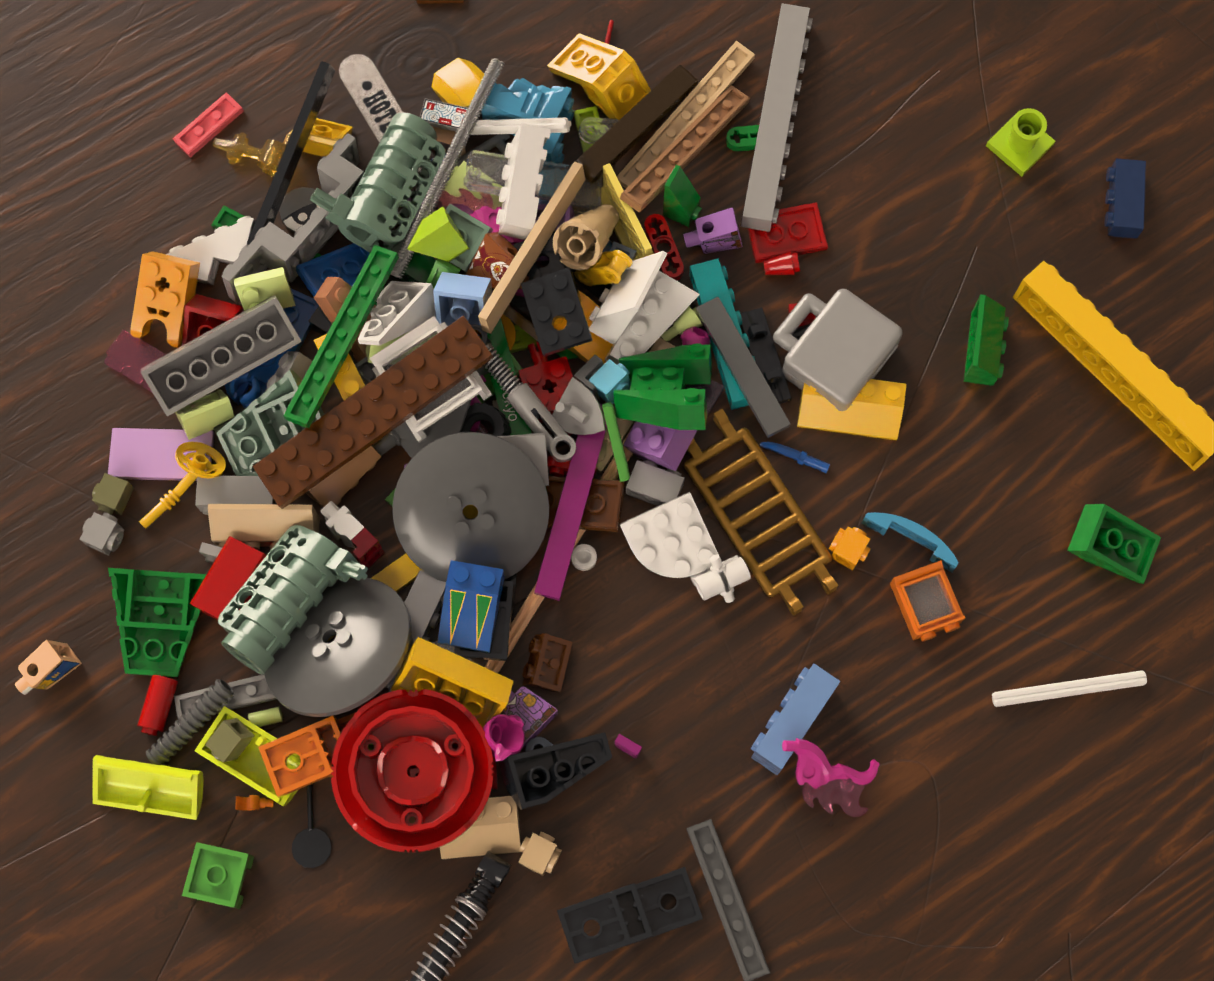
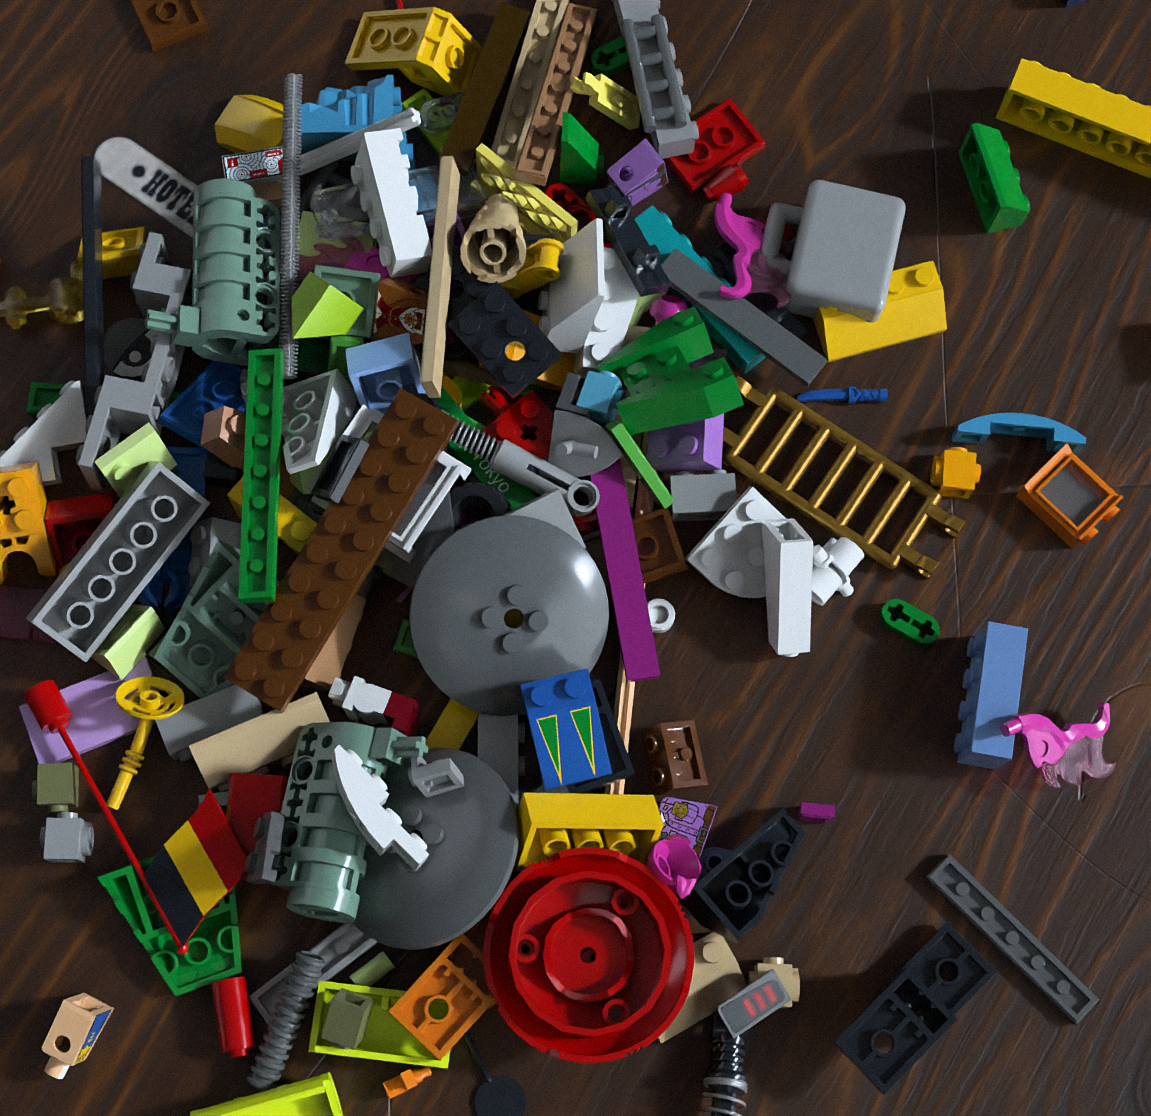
camera: 30 degrees left, 0 degrees up
(177, 587) = (191, 868): none -> flag
(232, 587) = (268, 844): none -> dark grey wing
(304, 593) = (364, 801): none -> white slope
(364, 599) = (434, 777): none -> light grey bracket
(396, 354) = (340, 468): none -> black tile
(514, 858) = (752, 1003): none -> slope
(682, 575) = (788, 585): none -> white slope
(685, 277) = (628, 241): none -> black hinge
(724, 168) = (609, 98): none -> light yellow plate
(767, 332) = (749, 263): none -> dark pink piece
(768, 637) = (913, 616): none -> green beam
(769, 174) = (645, 88): none -> dark grey bar

